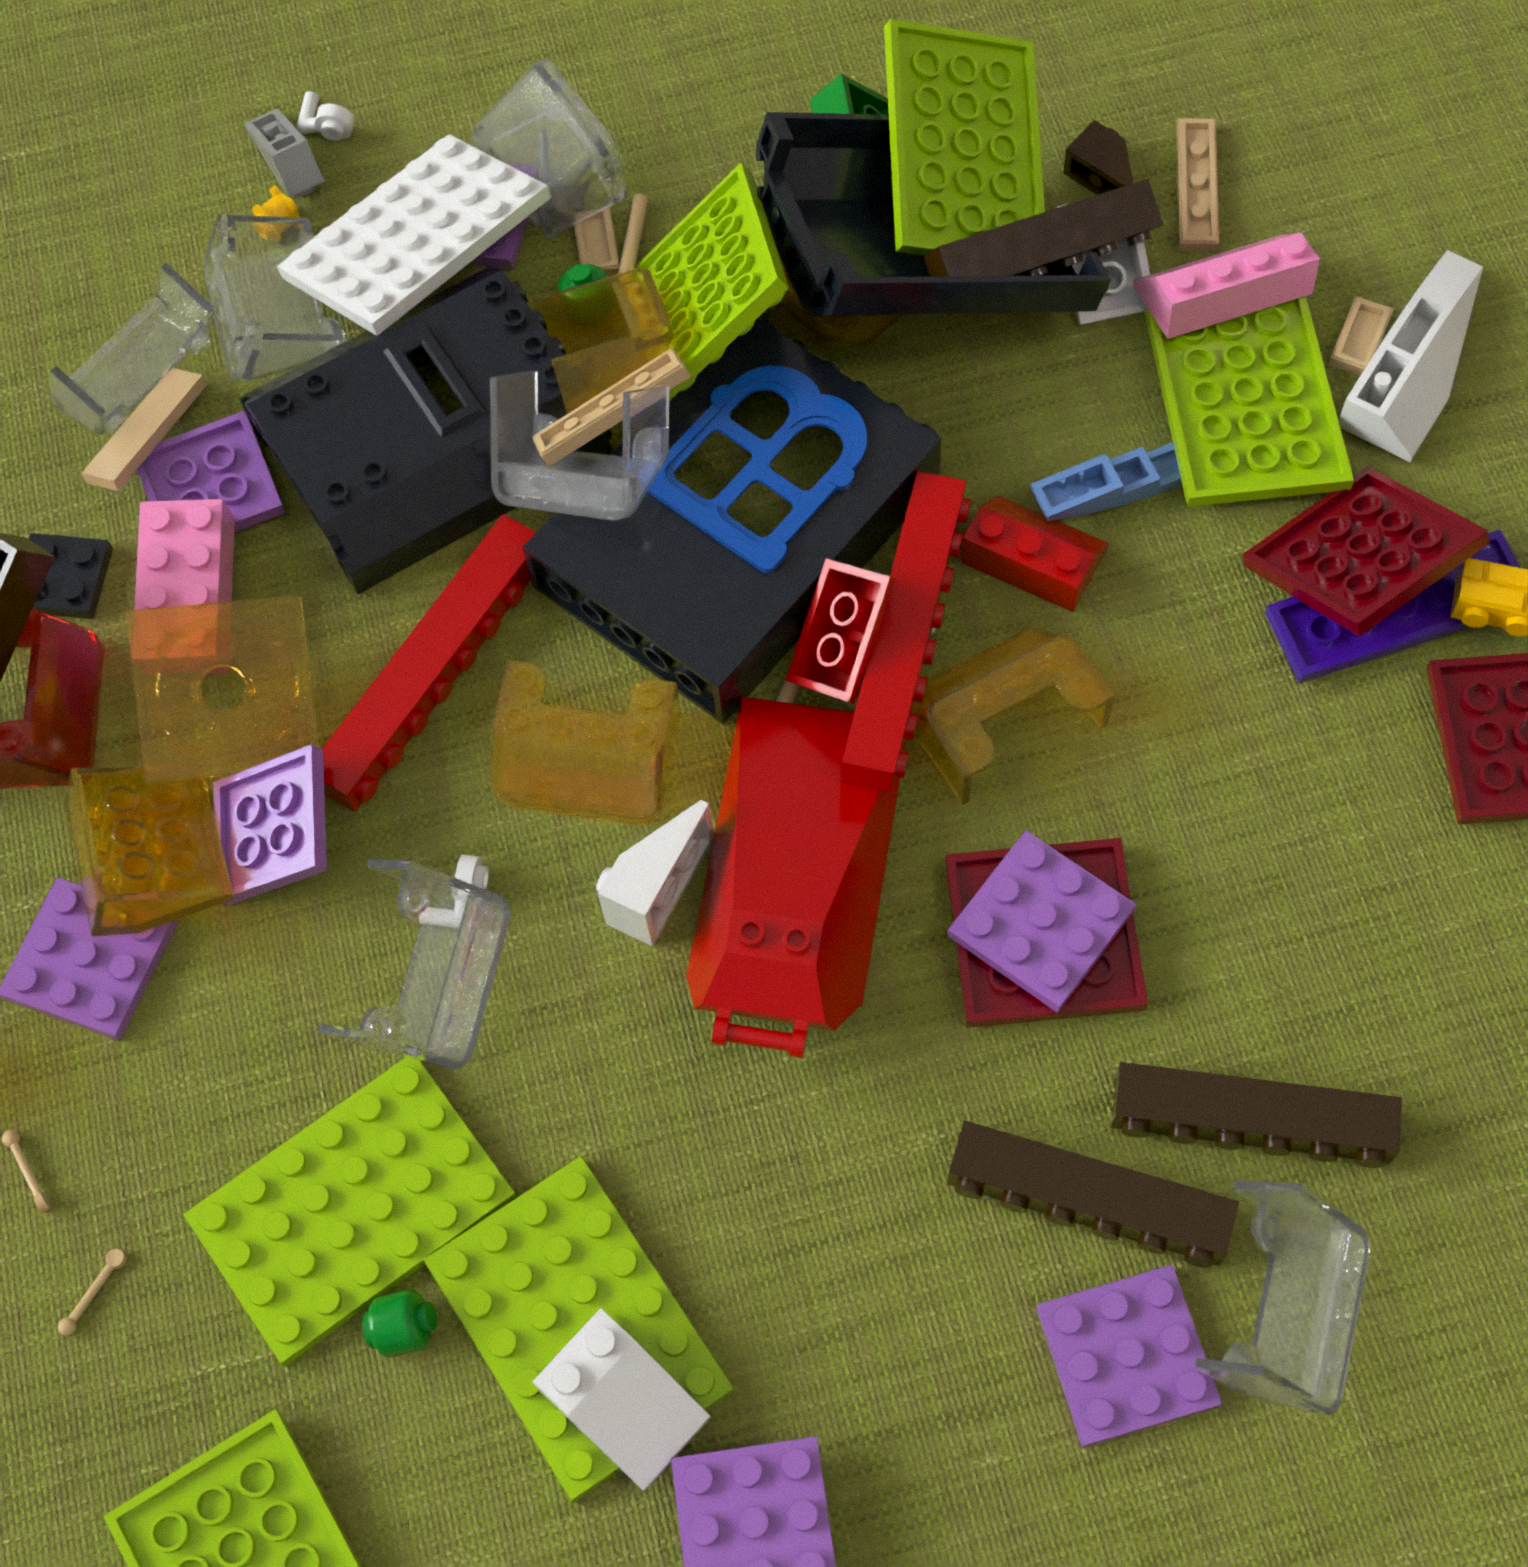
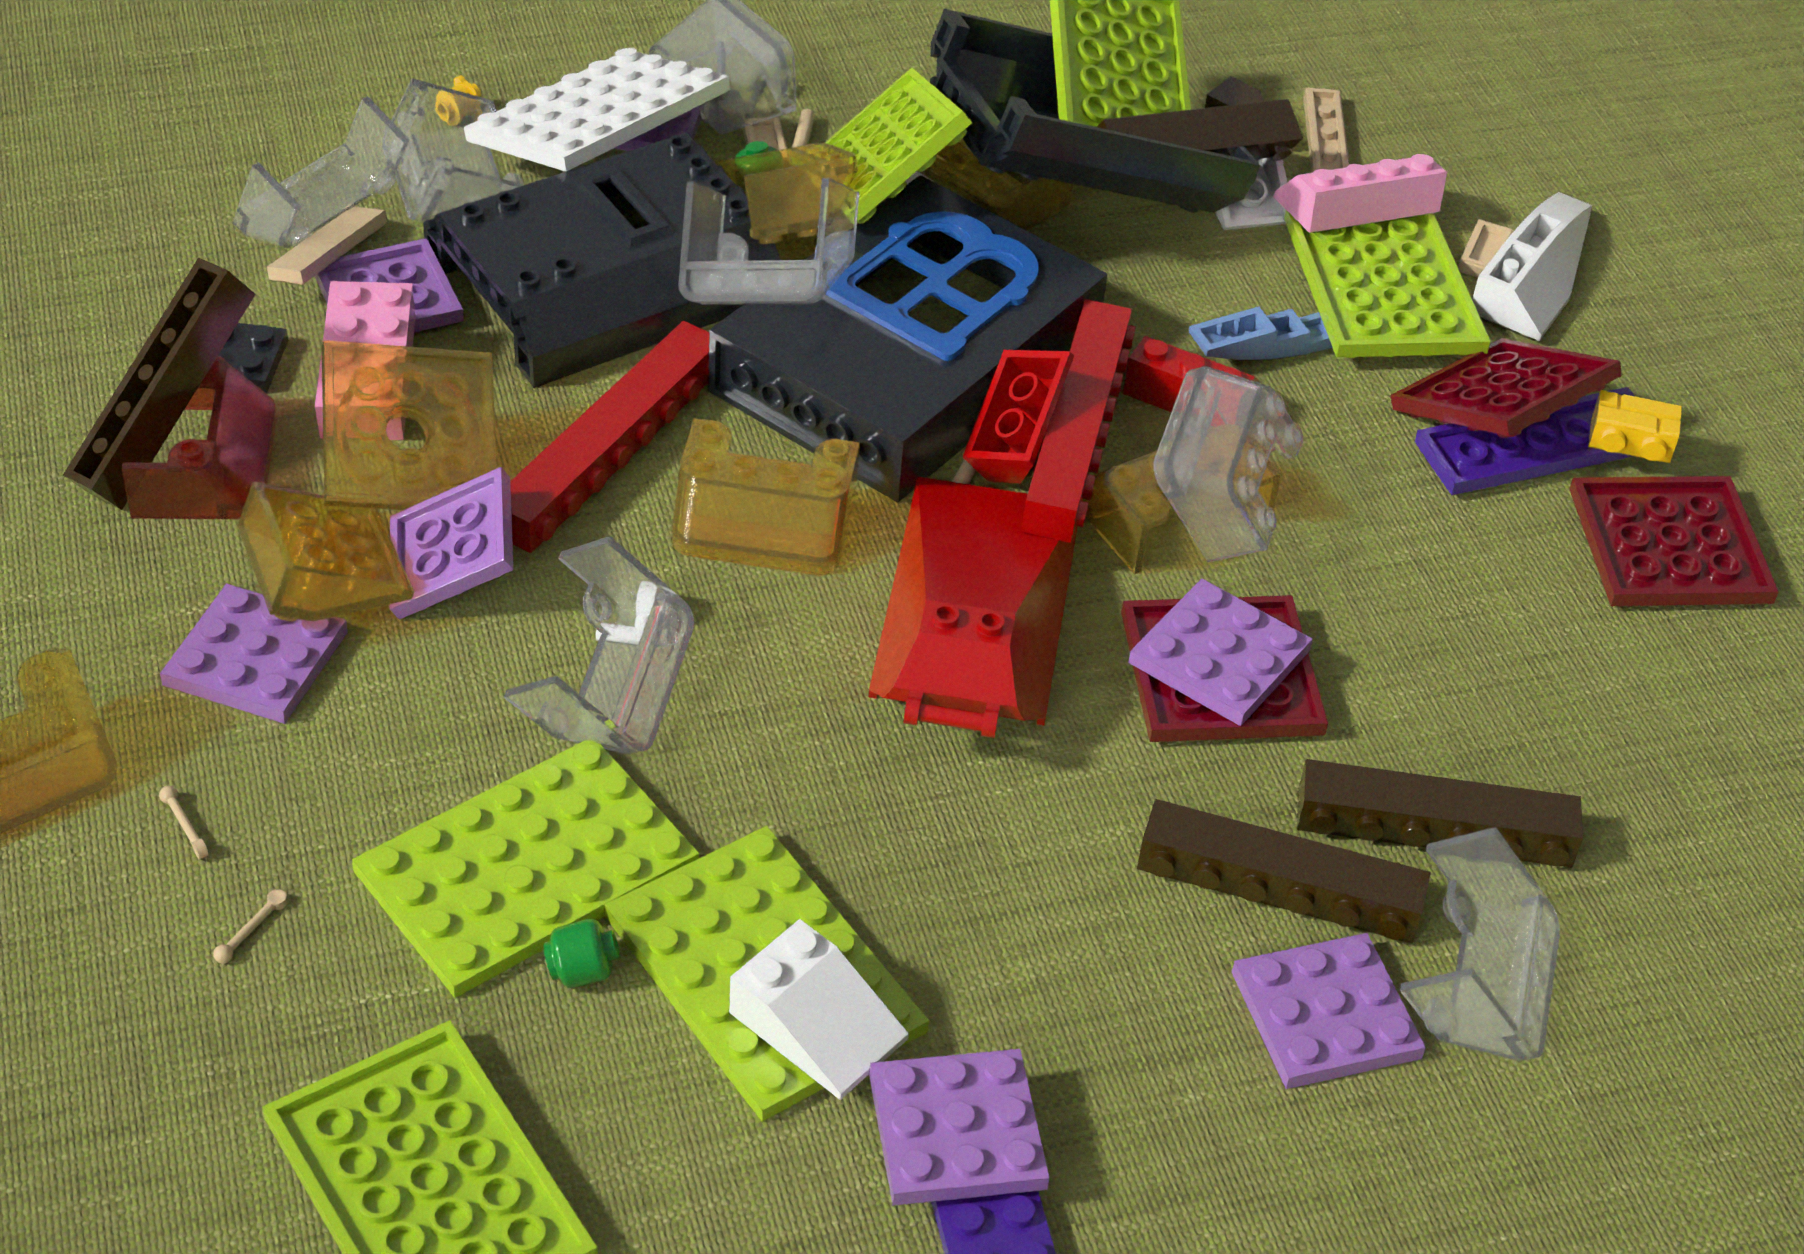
camera: 10 degrees left, 20 degrees down
(285, 153) = (470, 56): light grey slope -> none
(331, 119) = (513, 39): white plate -> none
(606, 408) = (785, 226): tan tile -> none
(653, 874) = (838, 597): white slope -> none
(1048, 682) = (1217, 457): none -> clear windscreen

